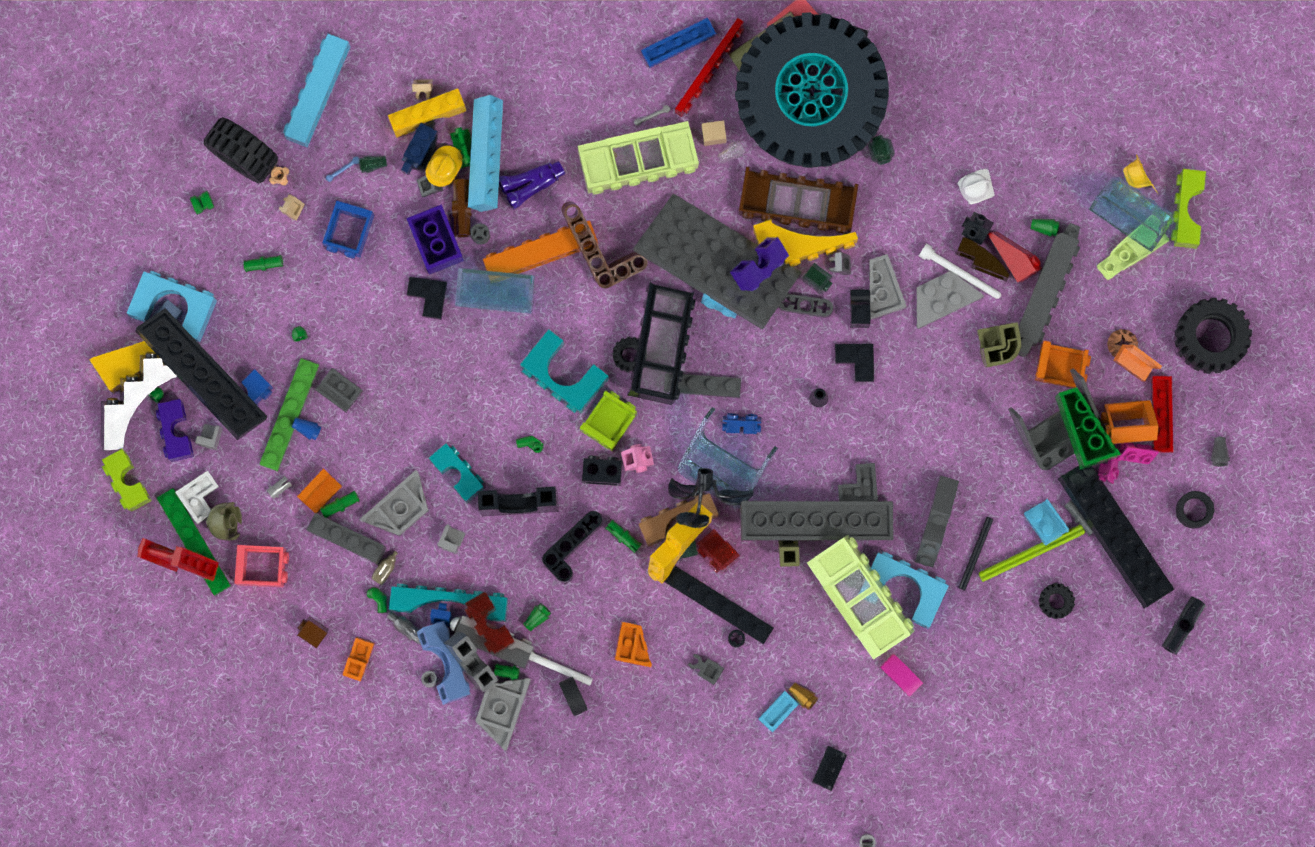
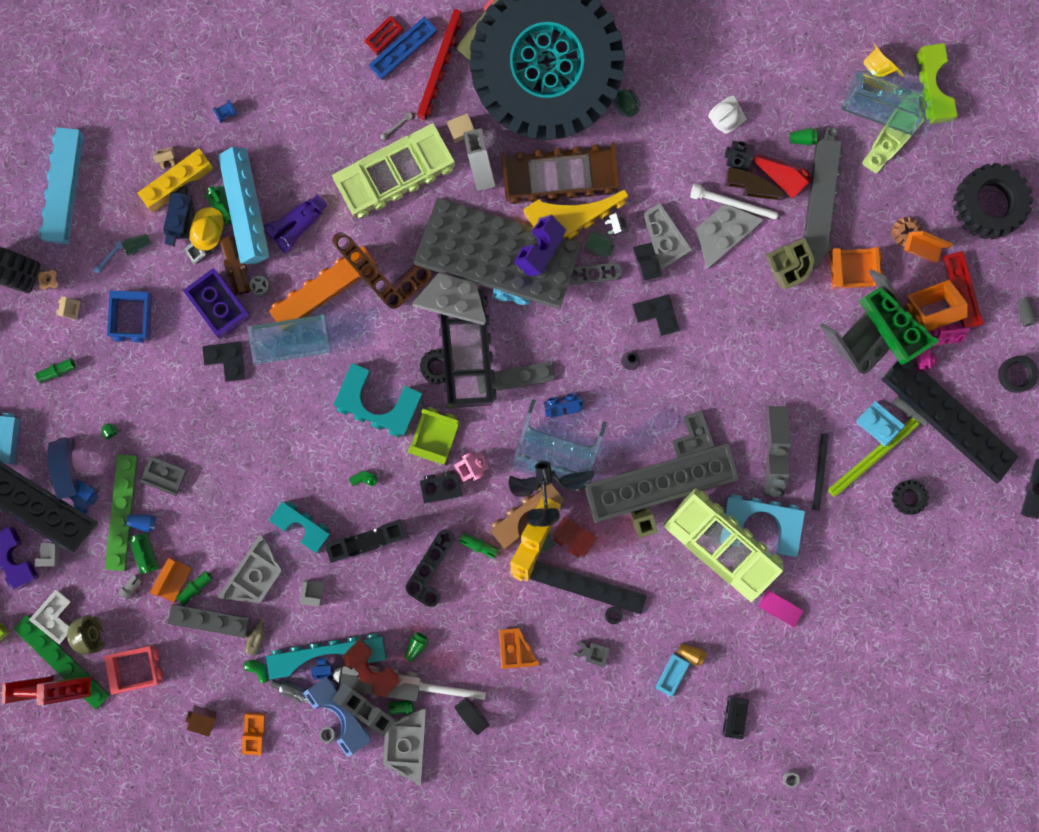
camera: 20 degrees left, 5 degrees up
(247, 356) = (61, 467): none -> dark blue arch
(300, 459) = (143, 553): none -> green hinge
(491, 59) = (224, 111): none -> blue bush
(650, 33) = (373, 46): none -> red tile
(661, 292) = (452, 298): none -> light grey wing
(723, 167) = (479, 159): none -> light grey slope

